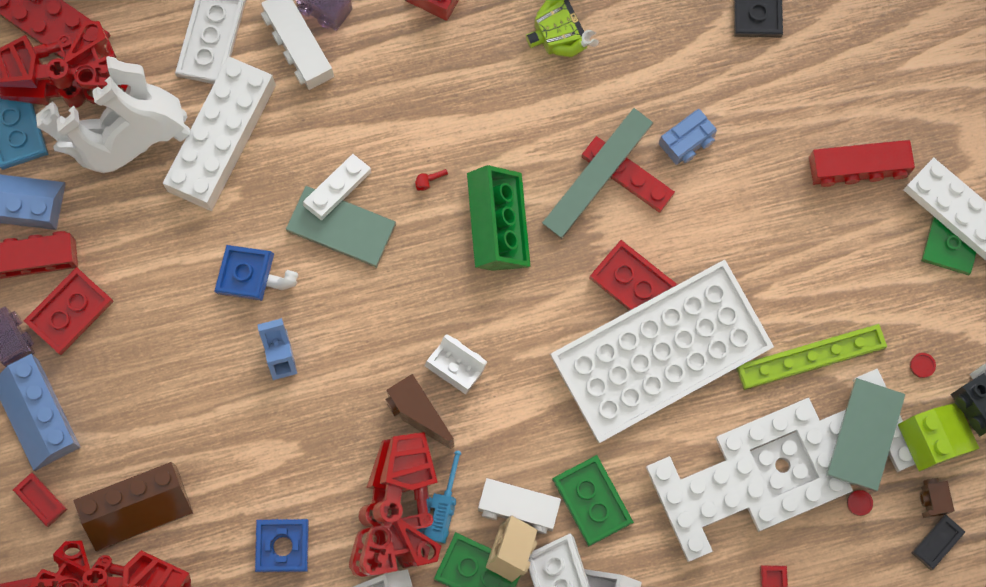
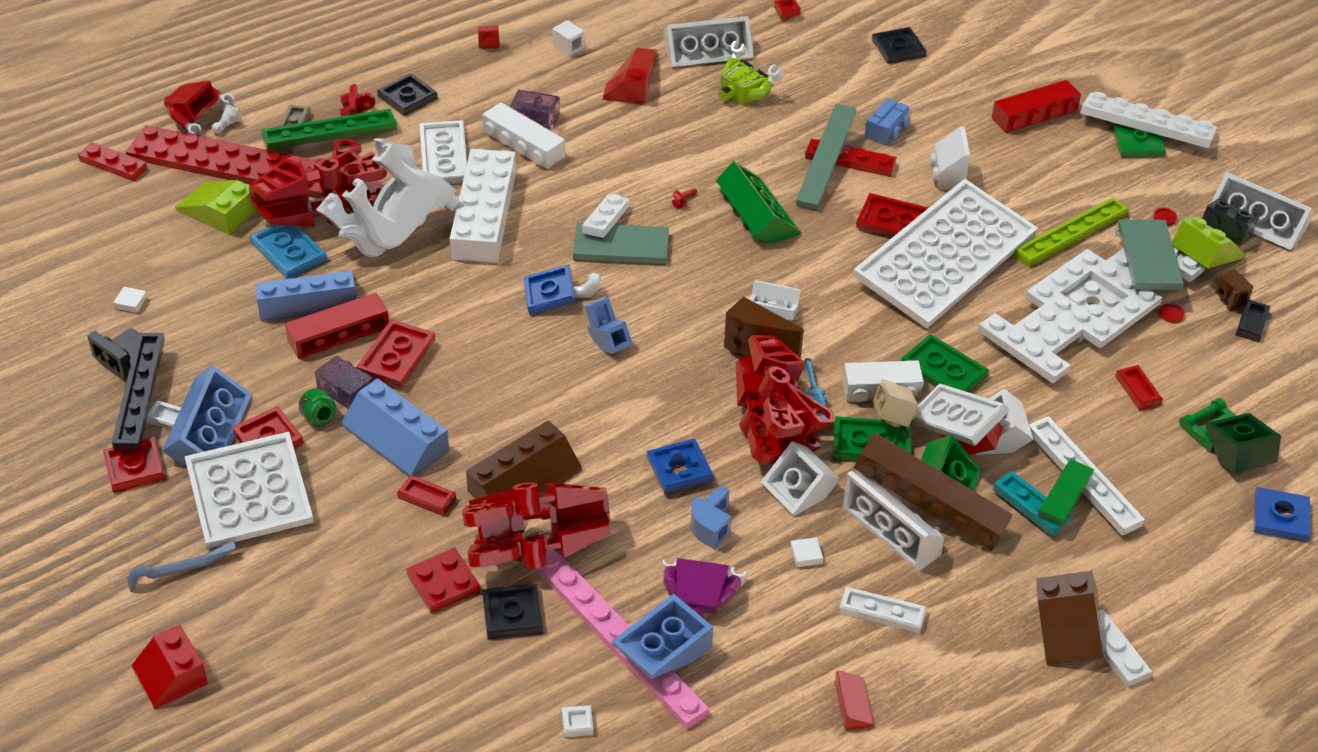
camera: 20 degrees left, 30 degrees down
(724, 224) = (950, 160): none -> white slope

